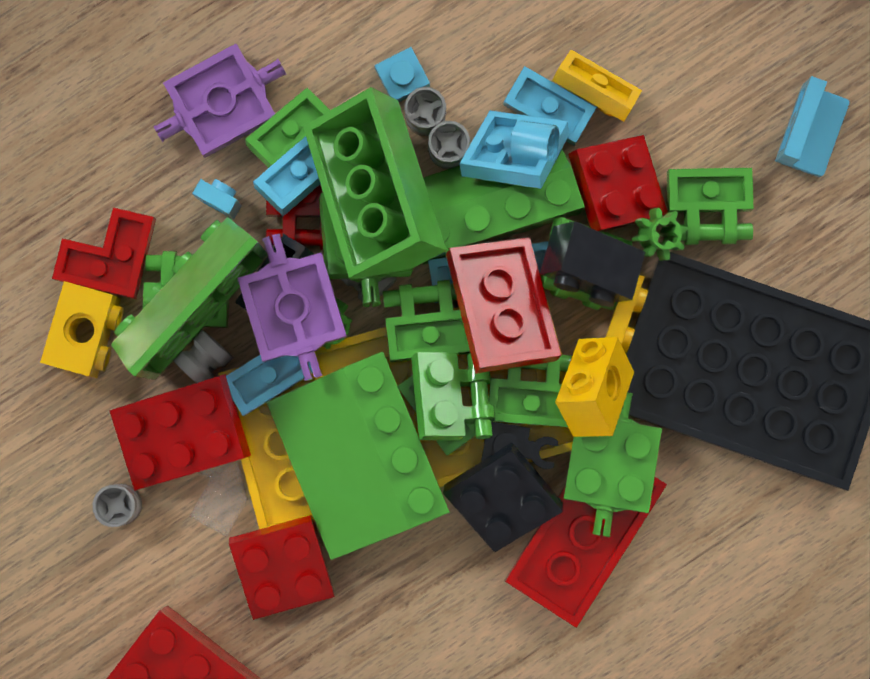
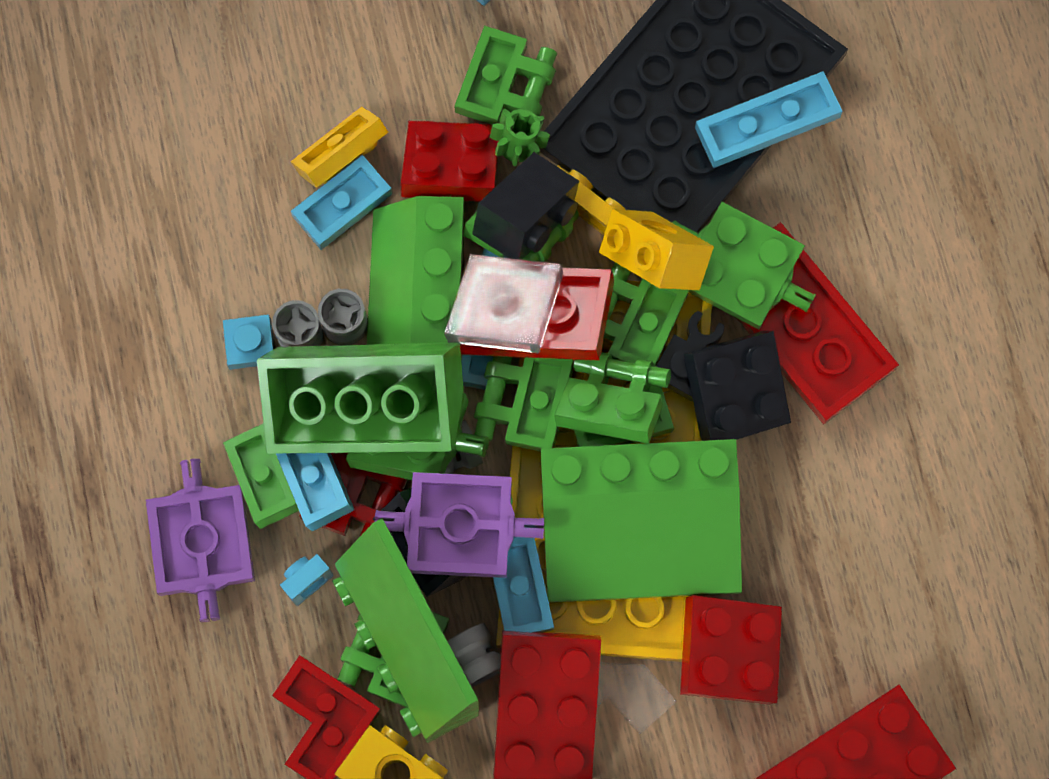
camera: 65 degrees left, 10 degrees down
(498, 275) = (504, 303): none -> clear plate
(514, 149) = (375, 247): medium azure plate -> none
(753, 443) = (768, 119): none -> medium azure plate

